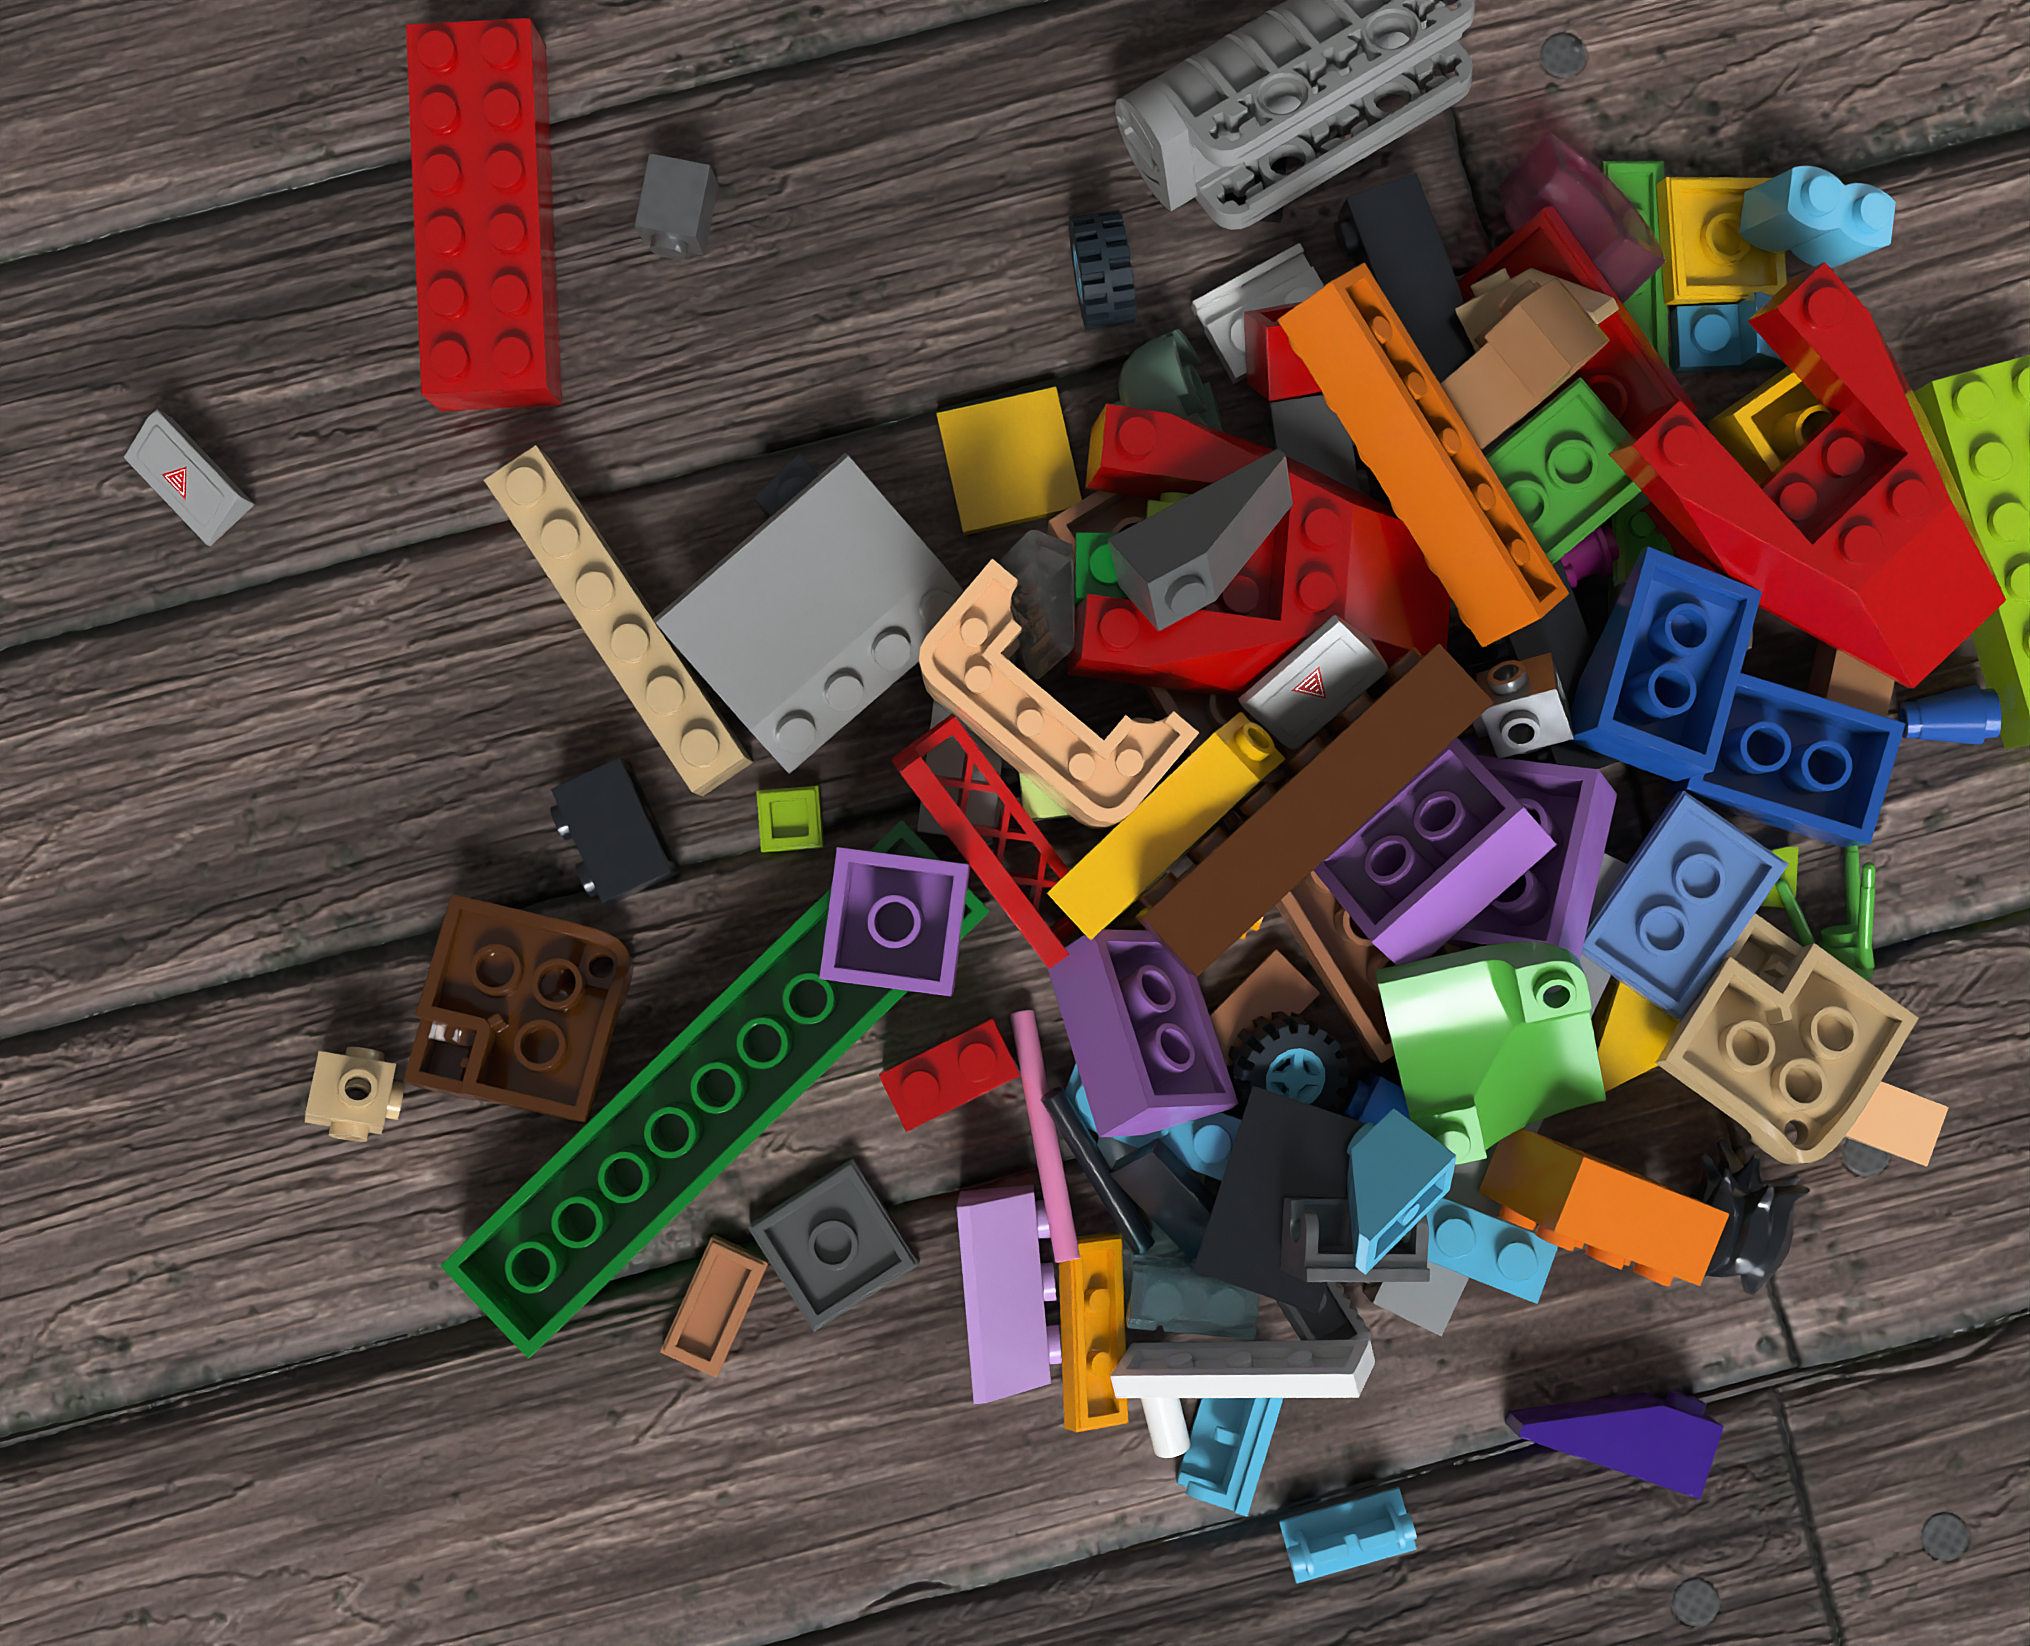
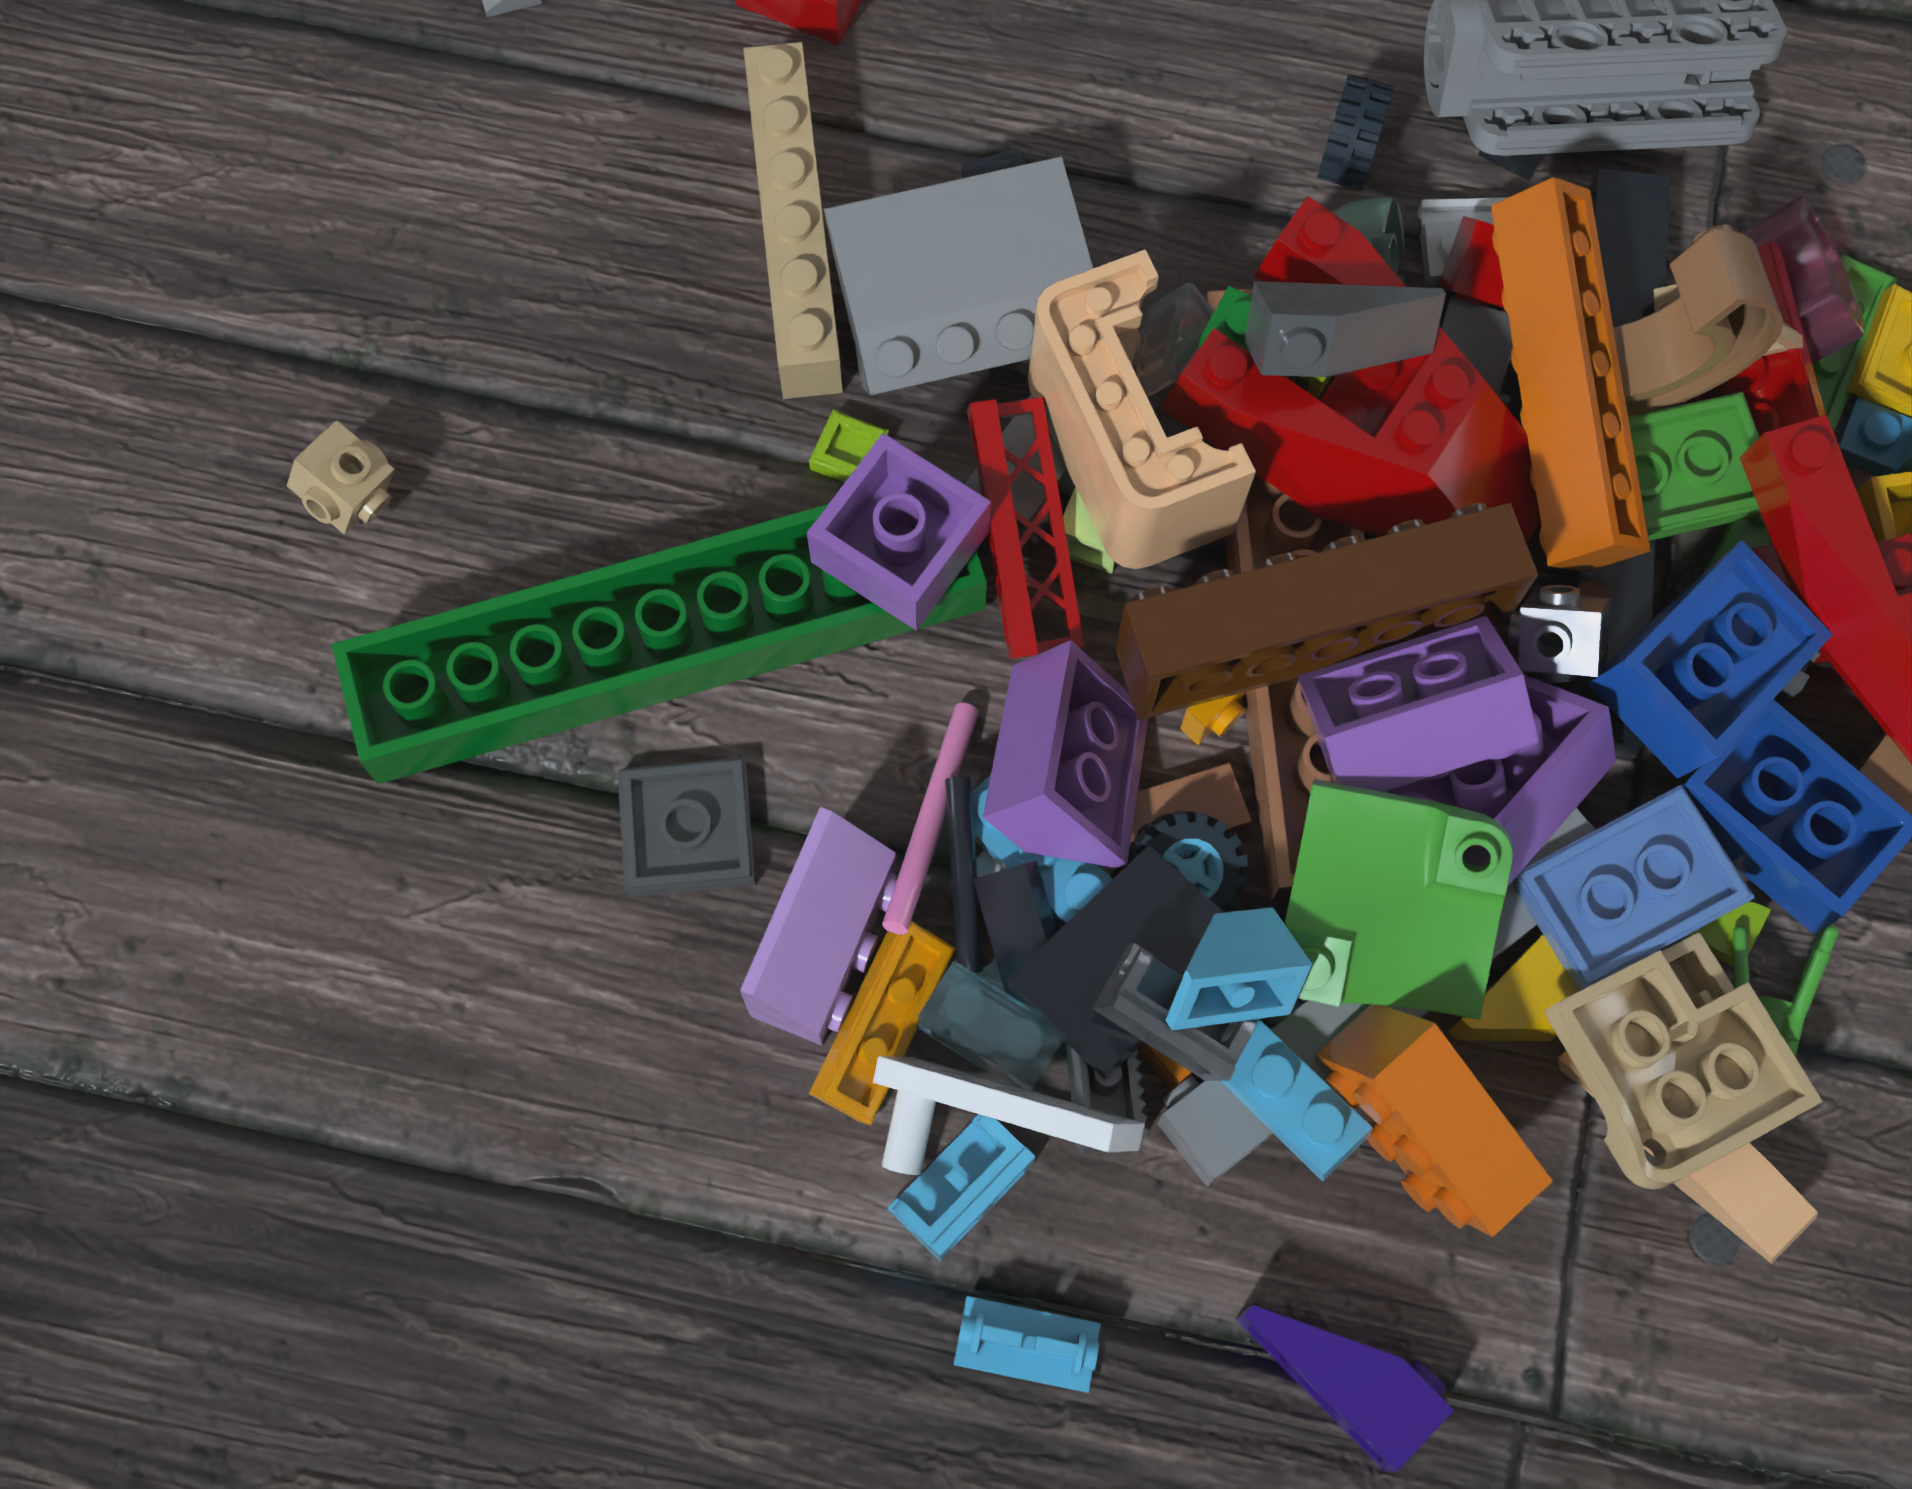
camera: 25 degrees right, 15 degrees down
(517, 1010) = (523, 476): reddish brown slope -> none
(613, 832) = (690, 382): black brick -> none
(714, 1306) = (548, 827): nougat tile -> none
(949, 1073) = (874, 719): red brick -> none
(1009, 460) = (1200, 242): yellow tile -> none
(1166, 824) = (1237, 539): yellow slope -> none
(1315, 682) = (1379, 500): light grey slope -> none
(1591, 556) = (1683, 557): magenta brick -> none
(1758, 1220) = (1570, 1219): black hair -> none

